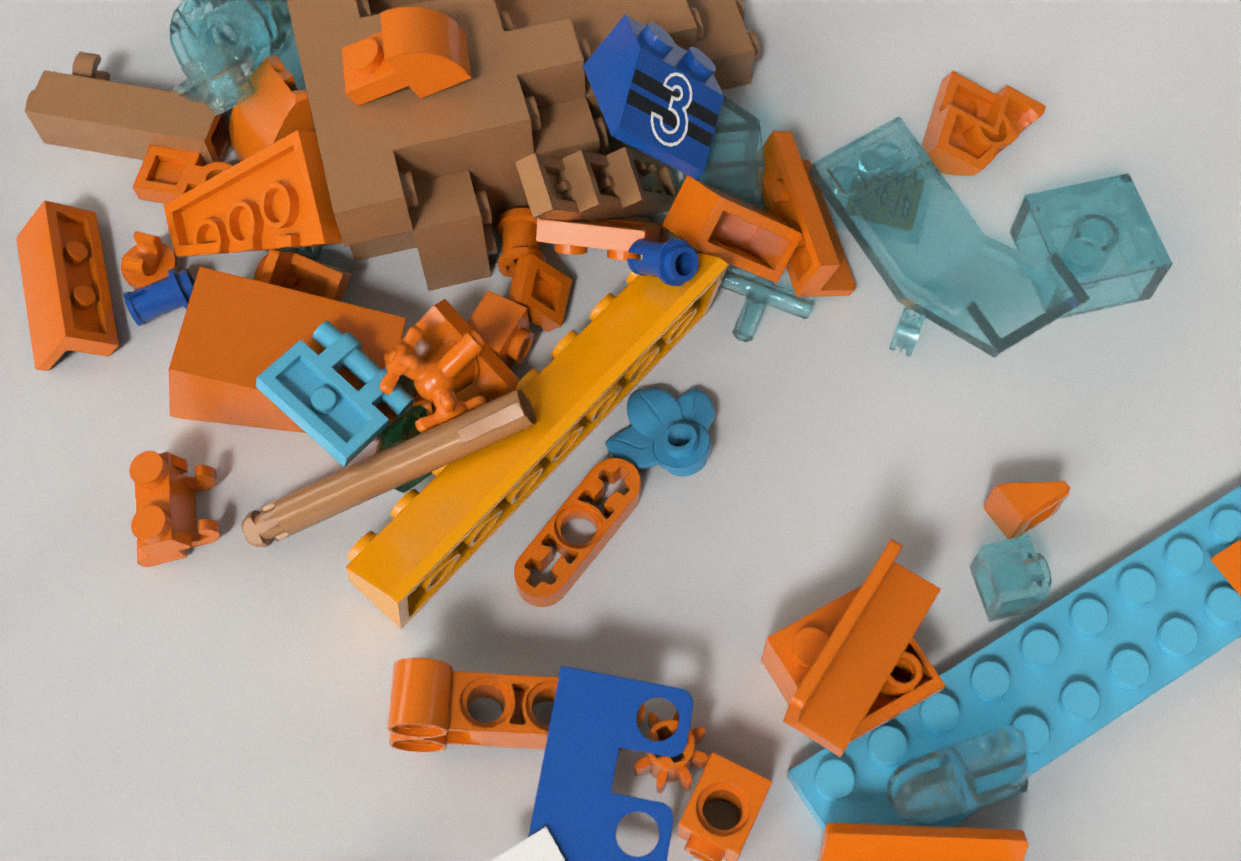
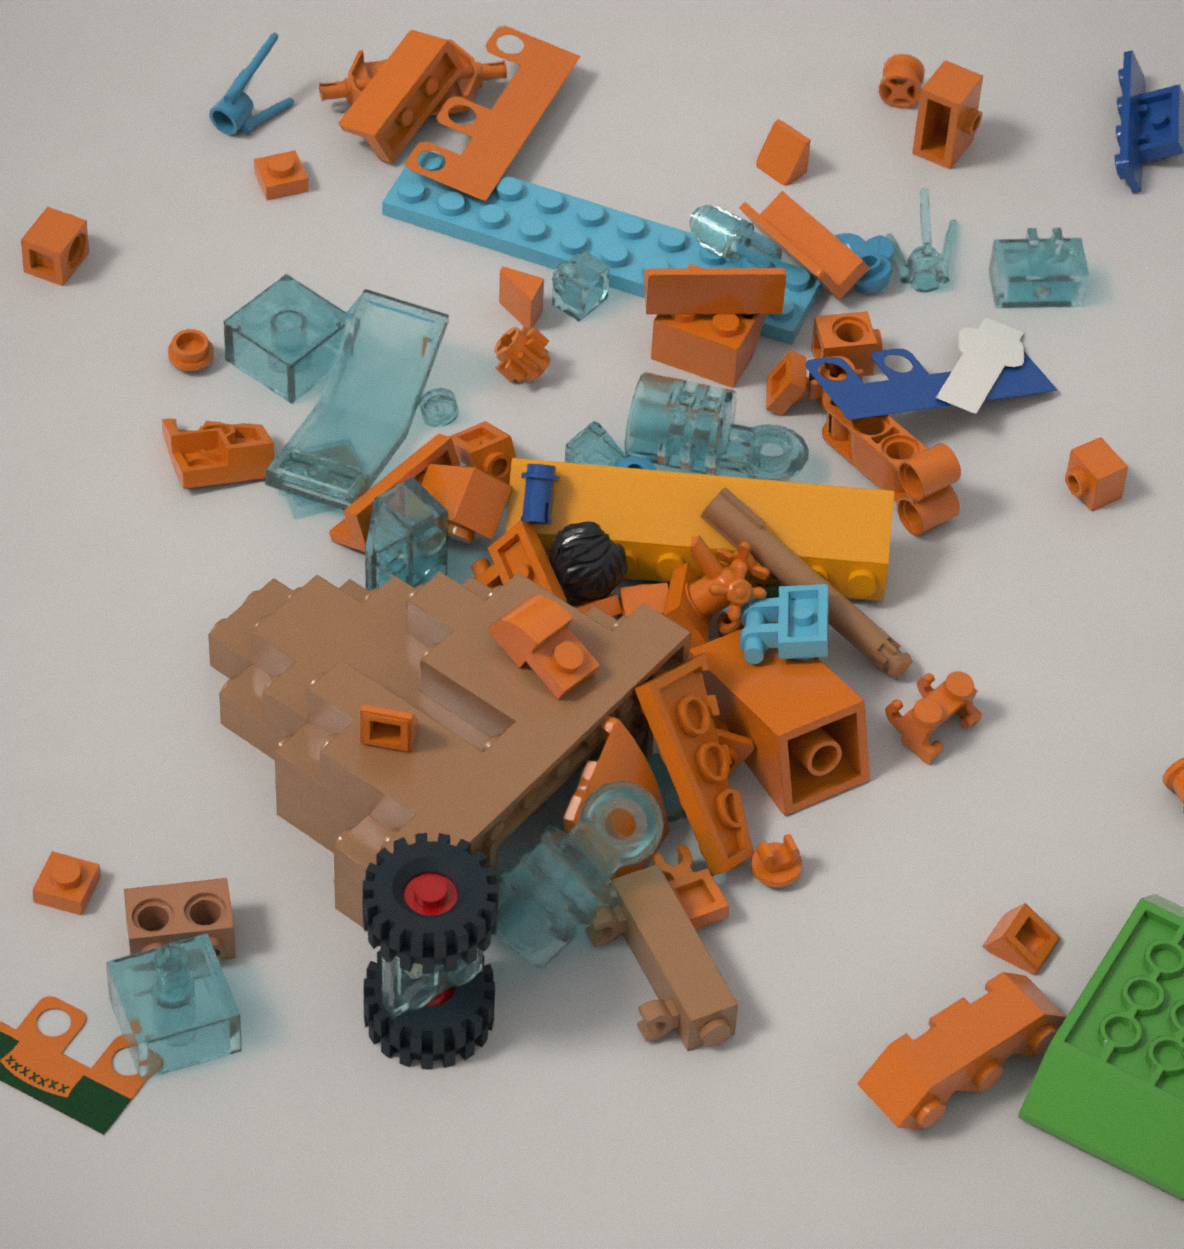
camera: 130 degrees left, 15 degrees down
(65, 284) = (844, 901): orange panel -> none
(160, 296) = (807, 837): blue pin -> none
(569, 286) = (587, 561): none -> black hair
(596, 185) = (526, 558): medium nougat slope -> none
(656, 94) = (427, 532): blue slope -> none
(678, 534) = (694, 431): none -> clear light blue cylinder
(712, 697) = (786, 383): none -> orange plate
(743, 436) = (593, 447): none -> clear light blue slope
(814, 329) = (486, 449): none -> orange bracket
(928, 443) = (522, 354): none -> orange gear
(1136, 163) = (190, 350): none -> orange plate

